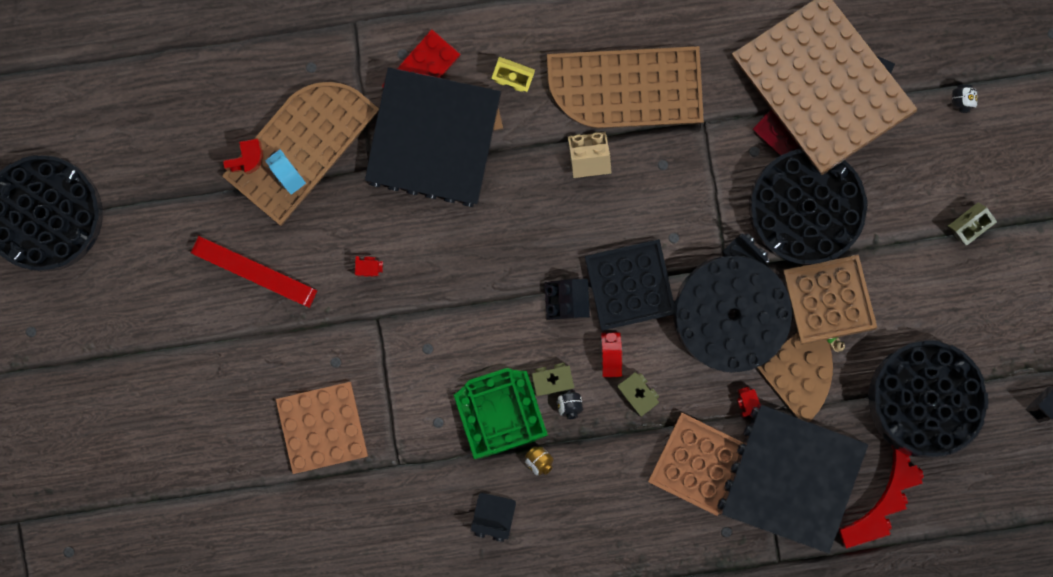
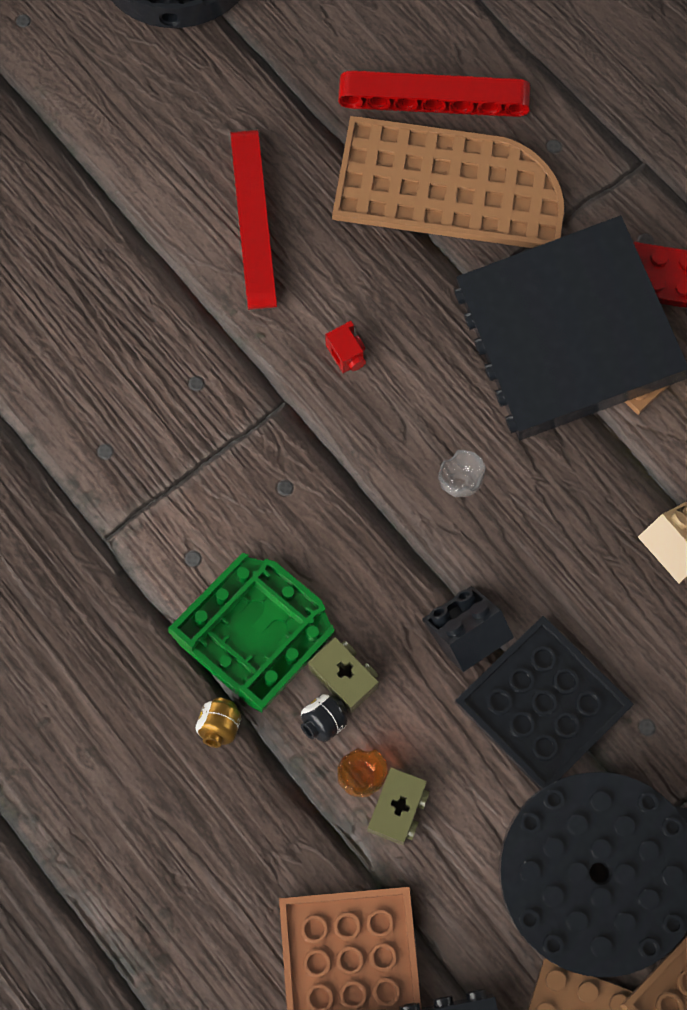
camera: 55 degrees right, 15 degrees down
(236, 117) = (434, 93): none -> red beam
(251, 157) = (395, 129): red brick -> none
(285, 172) = (403, 177): medium azure brick -> none
(322, 427) = (98, 414): nougat plate -> none
(481, 249) = (462, 474): none -> clear hair
(493, 517) = (101, 706): black bracket -> none
(610, 401) = (362, 772): none -> clear orange hair
(611, 354) = (429, 734): red brick -> none
(747, 400) = (487, 975): red brick -> none

